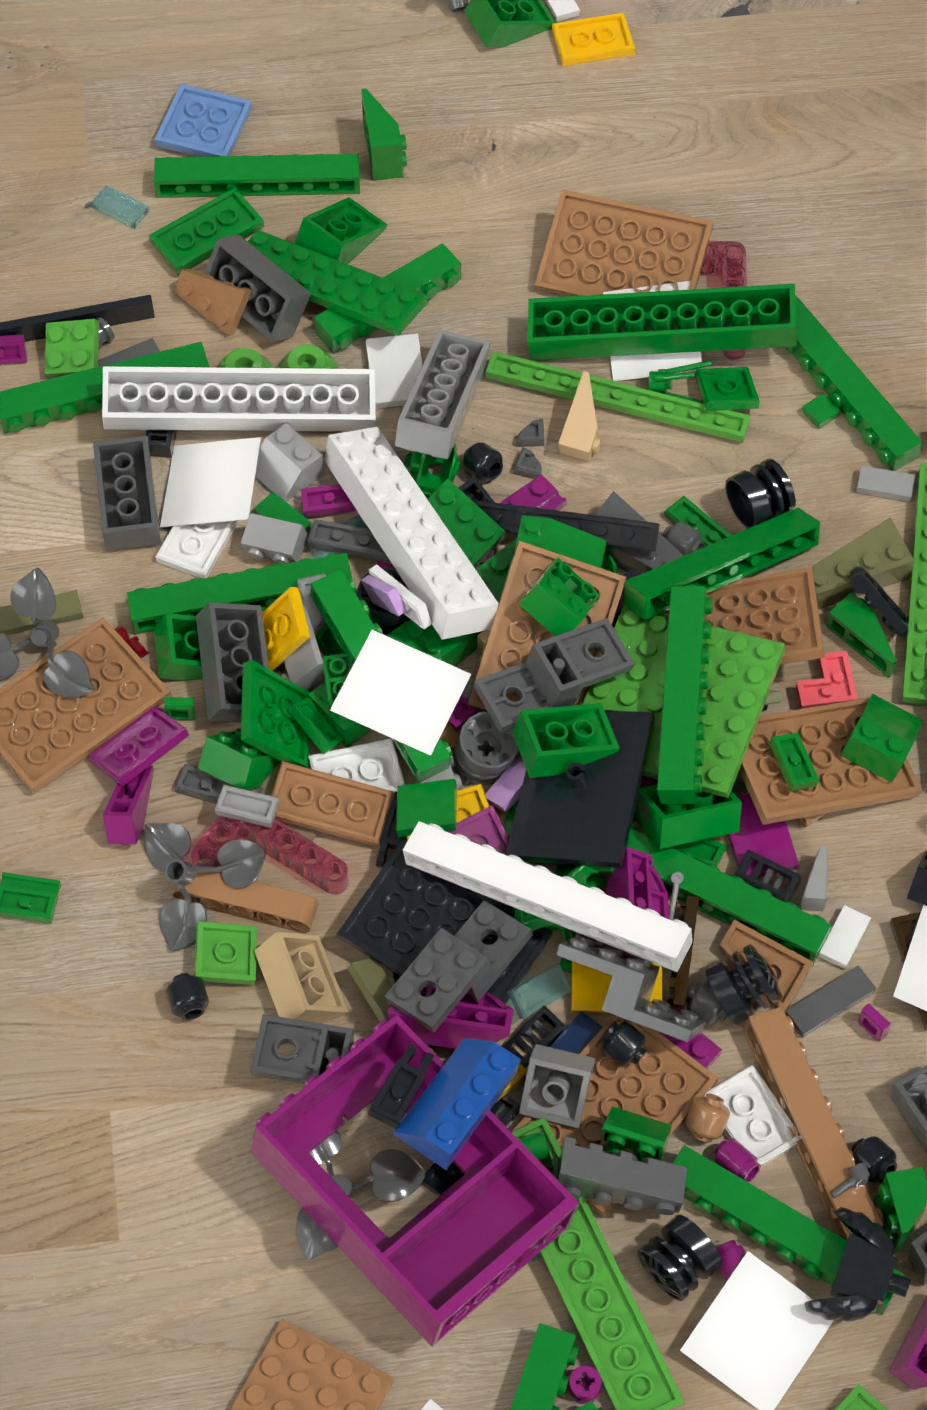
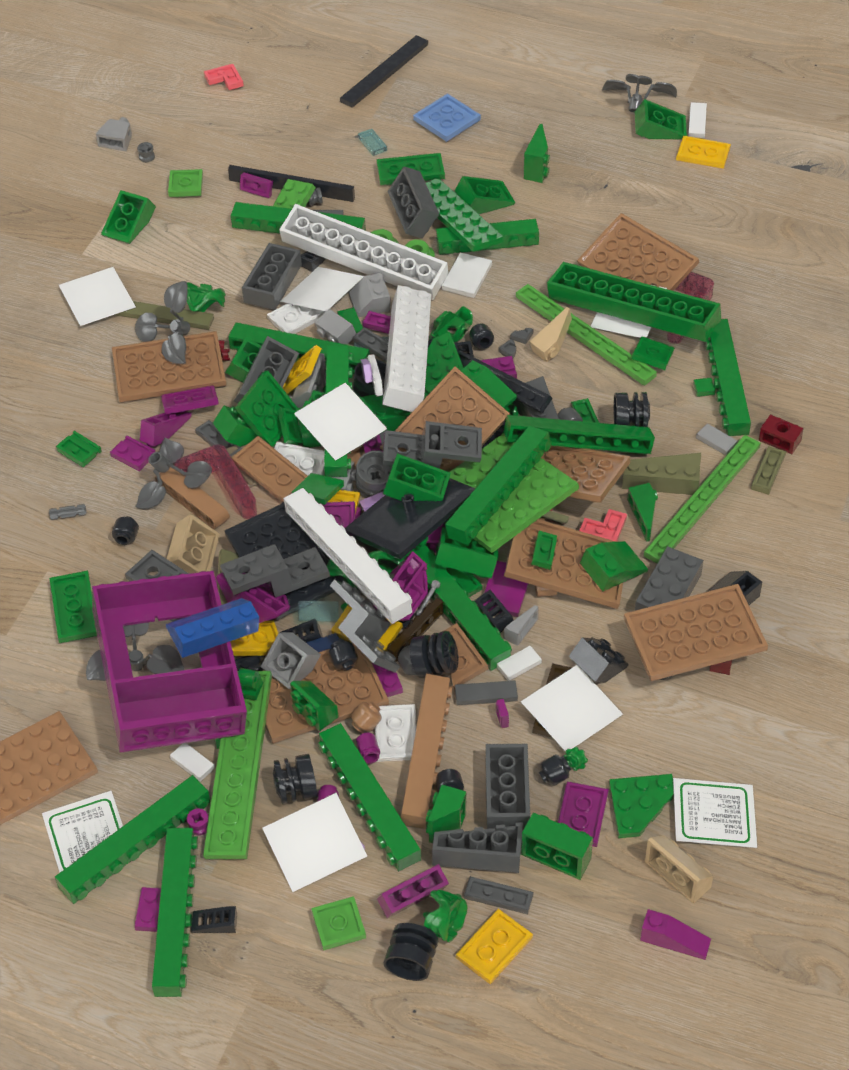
camera: 30 degrees right, 10 degrees down
(53, 564) = (204, 296): none -> green piece
(59, 80) = (384, 71): none -> black tile
(78, 1005) = (67, 511): none -> dark grey axle
(109, 867) = (132, 453): none -> magenta plate
(180, 708) = (225, 391): green tile -> none
(192, 1150) = (73, 606): none -> green plate
(214, 299) = (388, 201): medium nougat wing -> none
(226, 953) = (160, 518): bright green plate -> none
(247, 806) = (222, 449): light grey tile -> none
(257, 175) = (458, 152): green brick -> none
(400, 1089) = (186, 603): black hinge -> none
(442, 394) = (476, 289): light grey brick -> none
(518, 1301) = (192, 761): none -> white tile
(559, 598) = (460, 405): green slope -> none
(621, 1178) = (285, 716): dark grey wedge -> none
(661, 380) = (617, 335): green plant -> none
(859, 1178) = (428, 785): dark grey hand -> none
(863, 1272) = (391, 833): black torso -> none
(878, 598) = (662, 492): black hinge -> none

